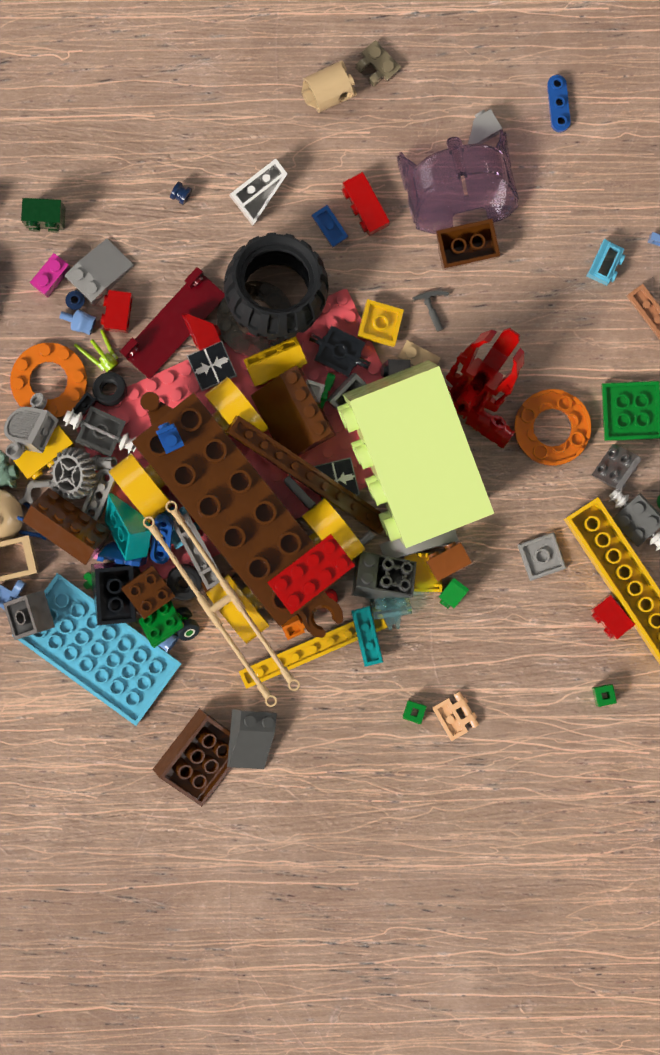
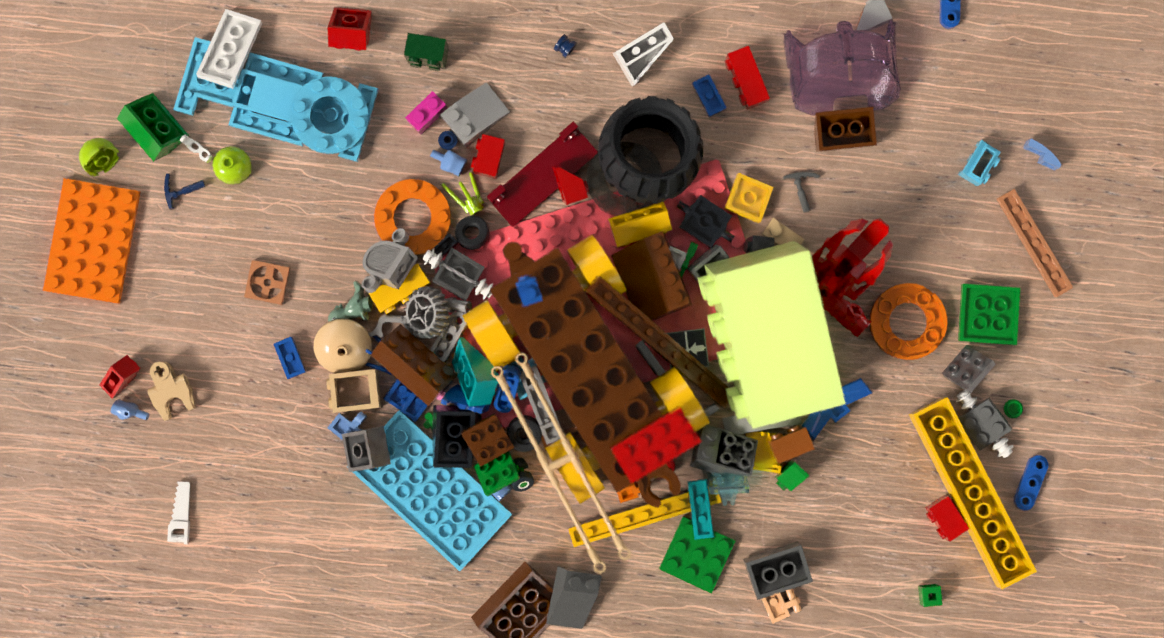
camera: 10 degrees right, 0 degrees up
(62, 563) = (405, 400): none -> blue slope
(211, 365) = (576, 221): black tile -> none
(369, 687) = (696, 560): none -> green plate
(420, 714) = (731, 591): green piece -> none
(450, 687) = (778, 570): none -> dark grey slope
(491, 523) = (851, 392): none -> blue plate
(541, 556) = (882, 449): light grey tile -> none

